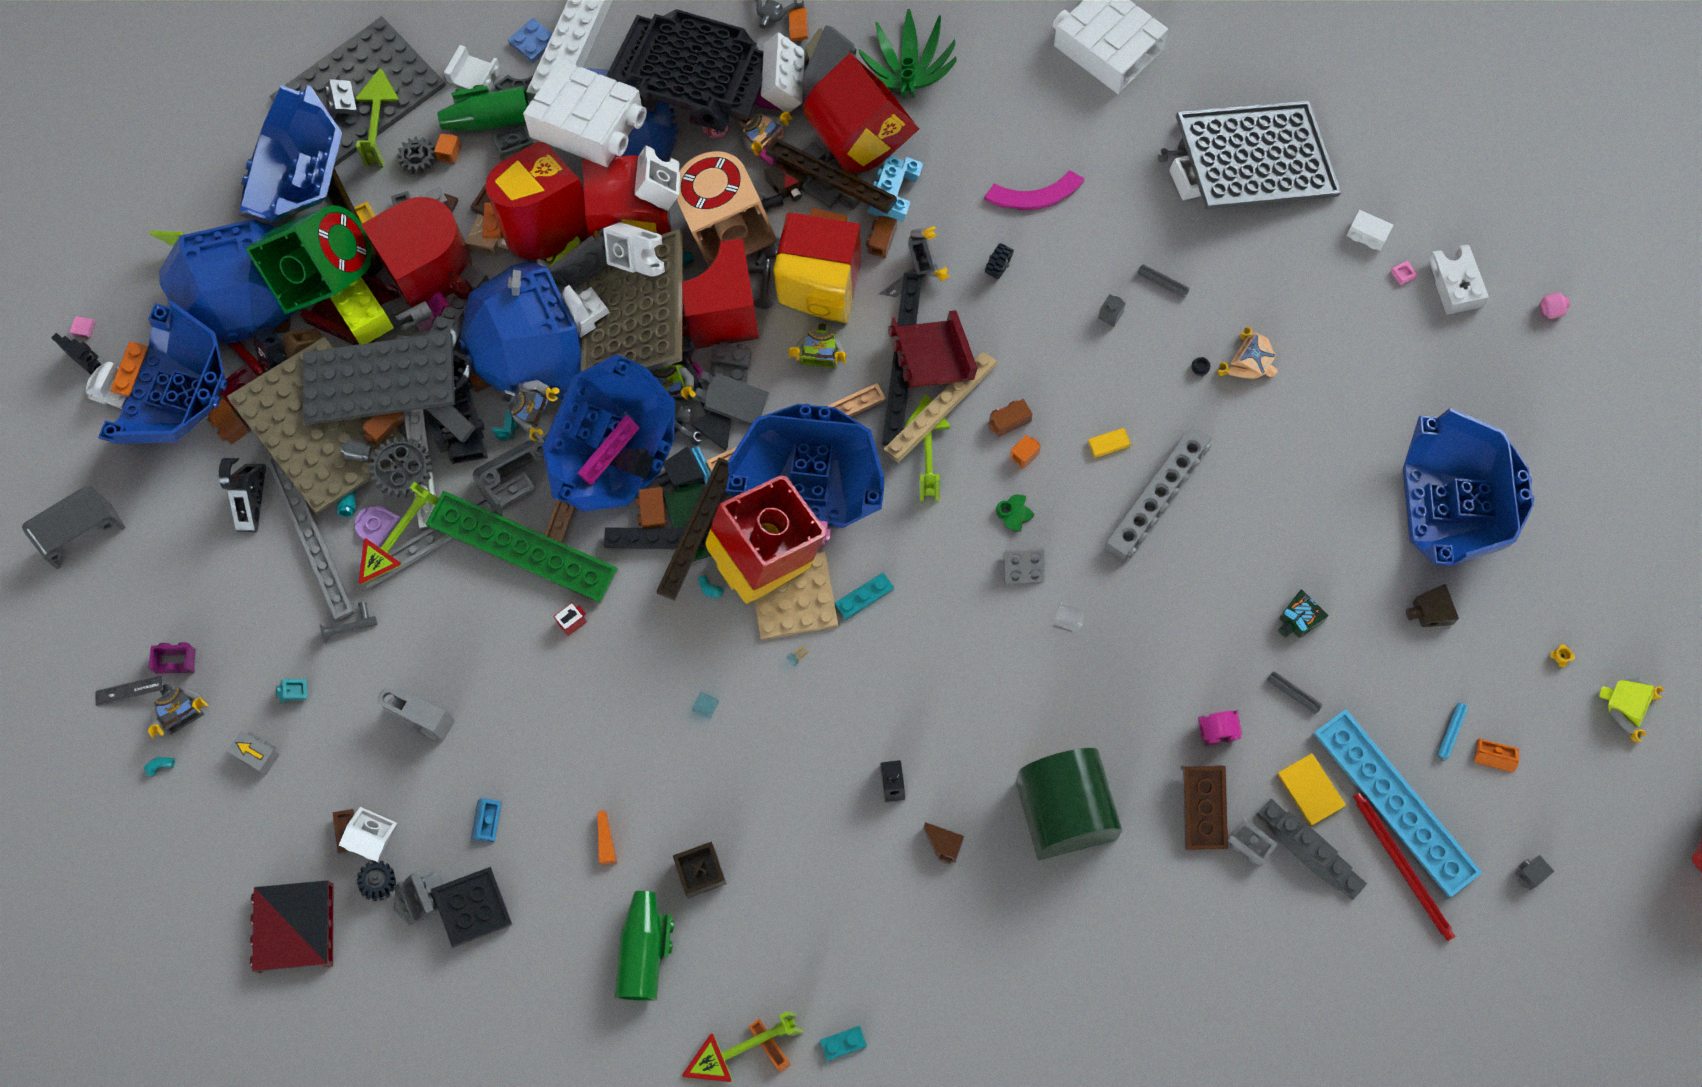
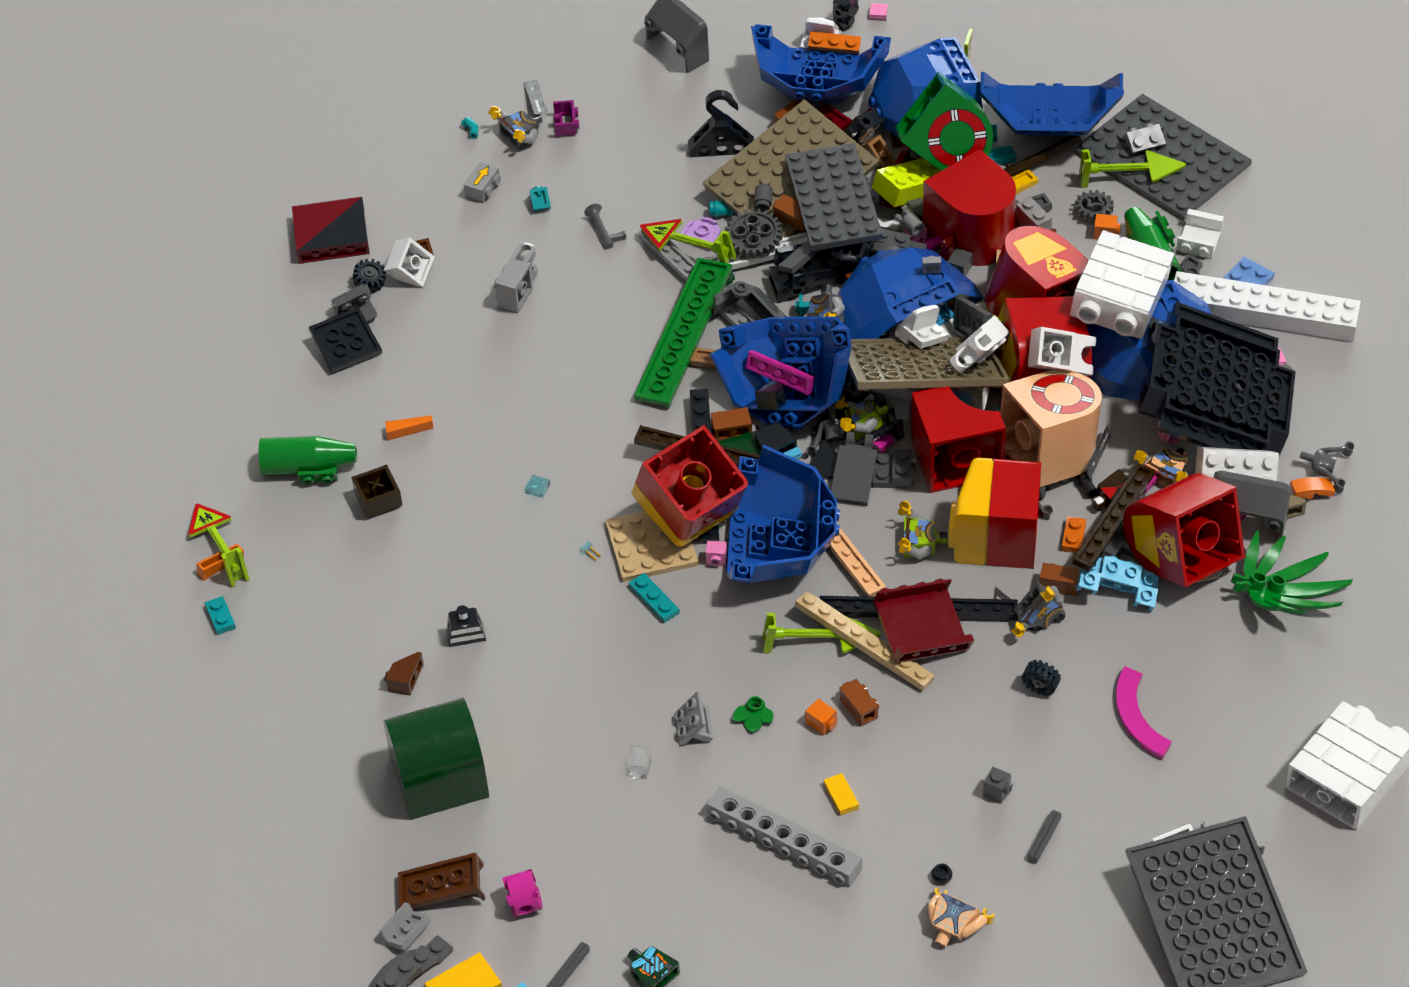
camera: 85 degrees right, 20 degrees down
(313, 544) = (660, 200): light grey plate -> none
(486, 820) = (425, 344): dark azure slope -> none
(570, 618) = (615, 376): brick -> none

